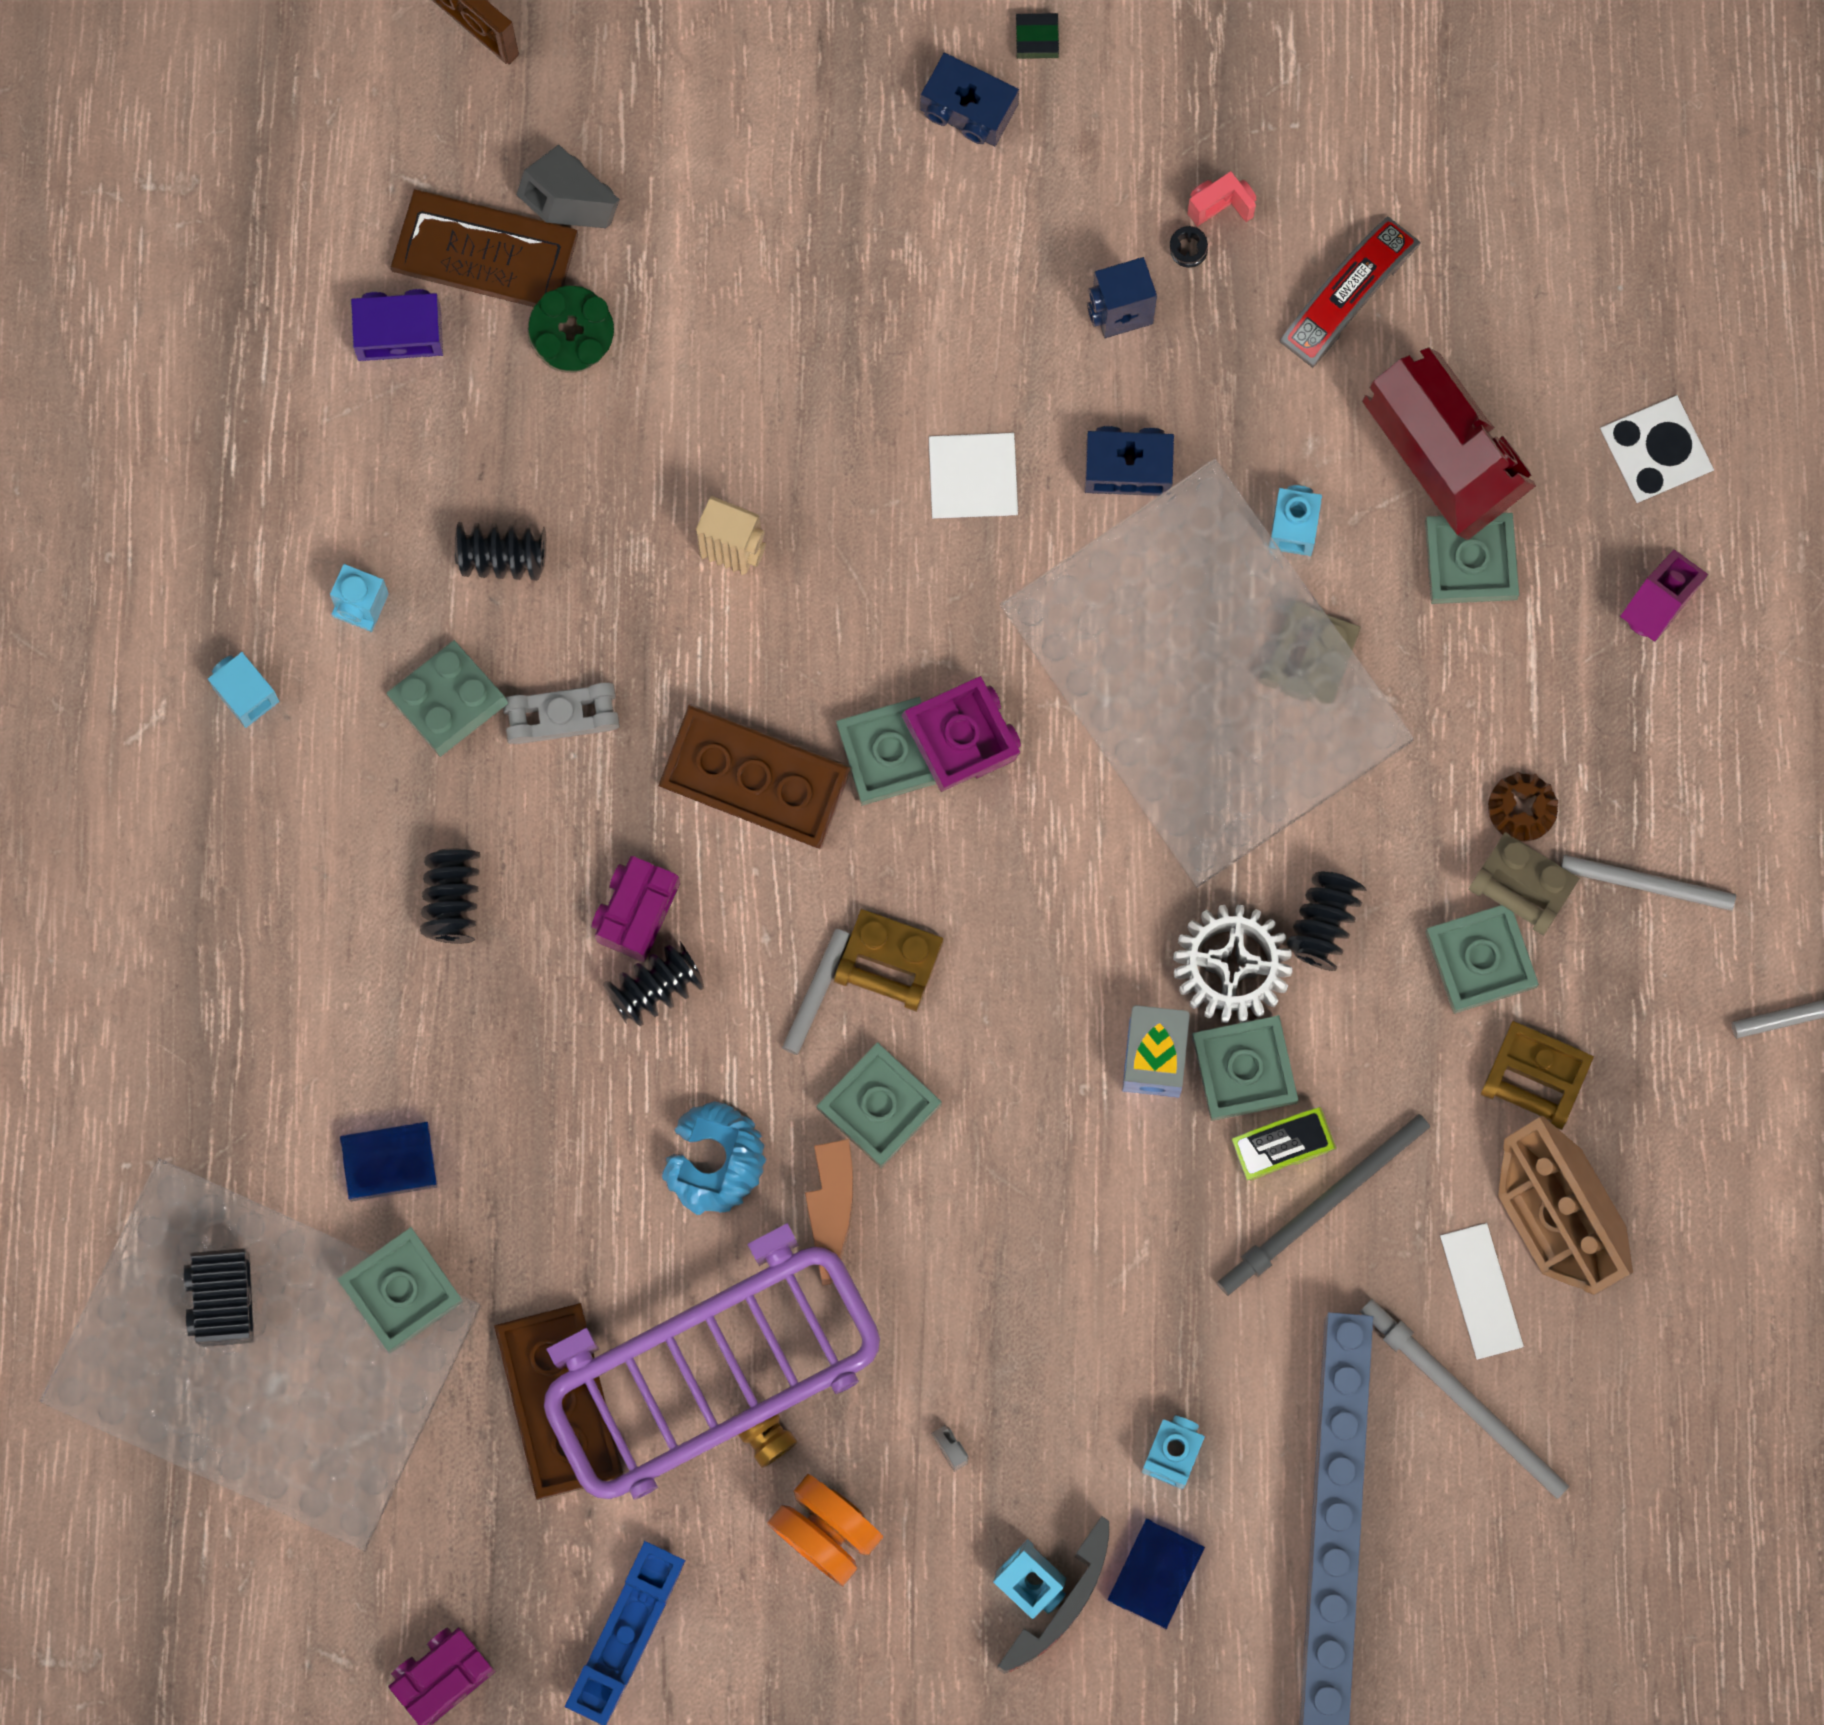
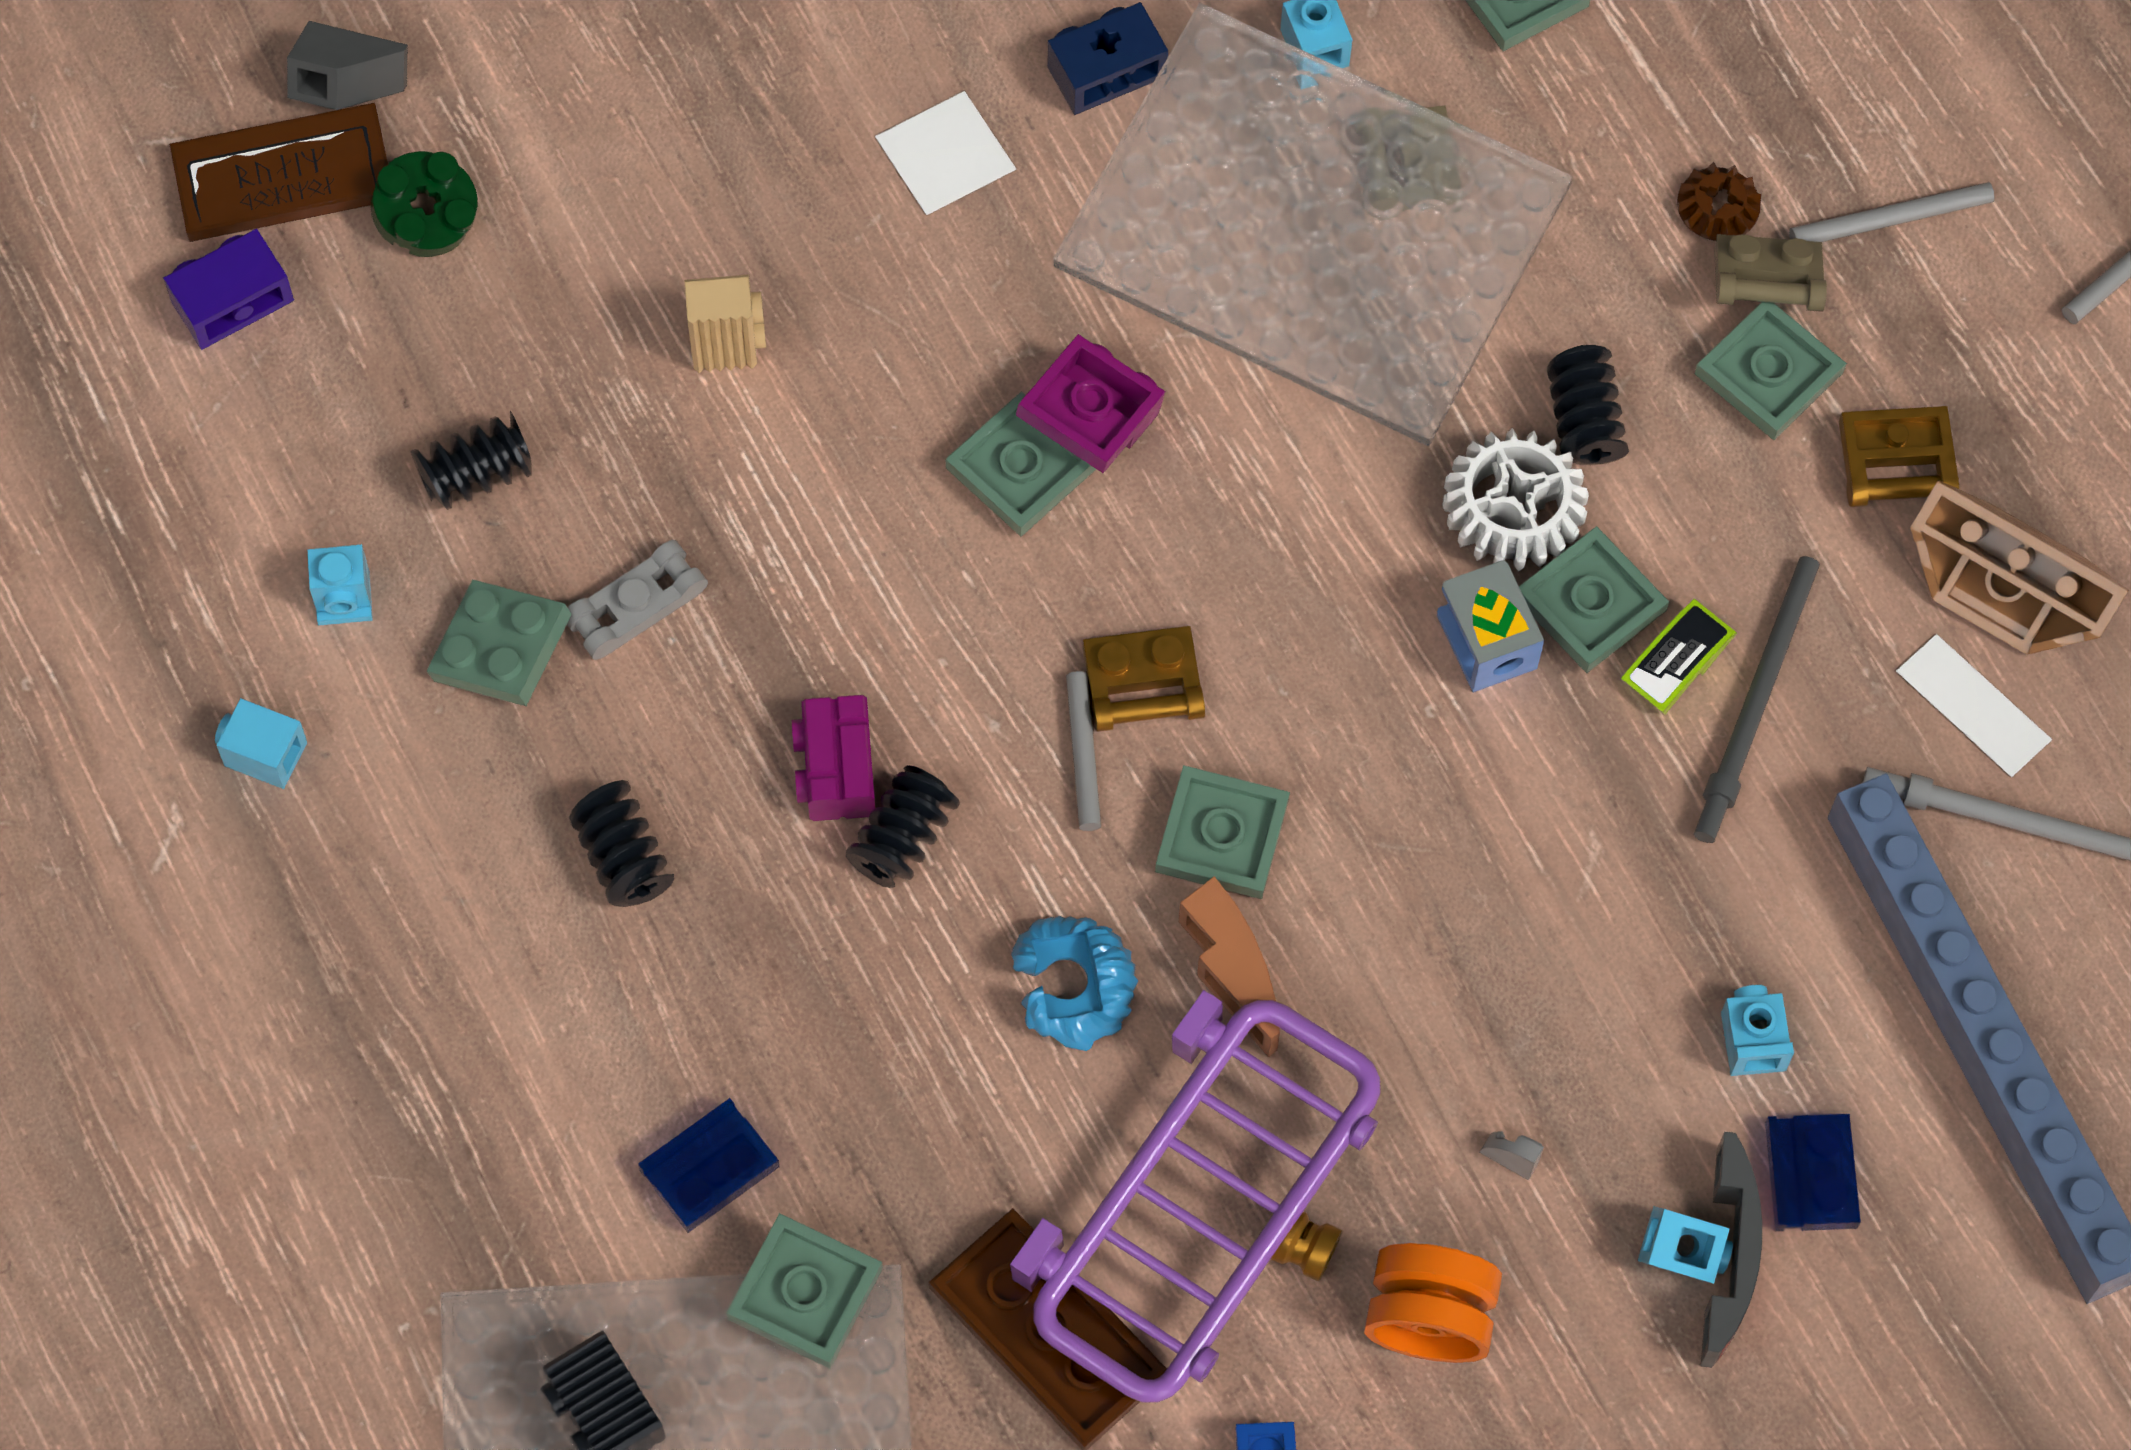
camera: 30 degrees left, 10 degrees down
(755, 776) = (889, 559): reddish brown tile -> none

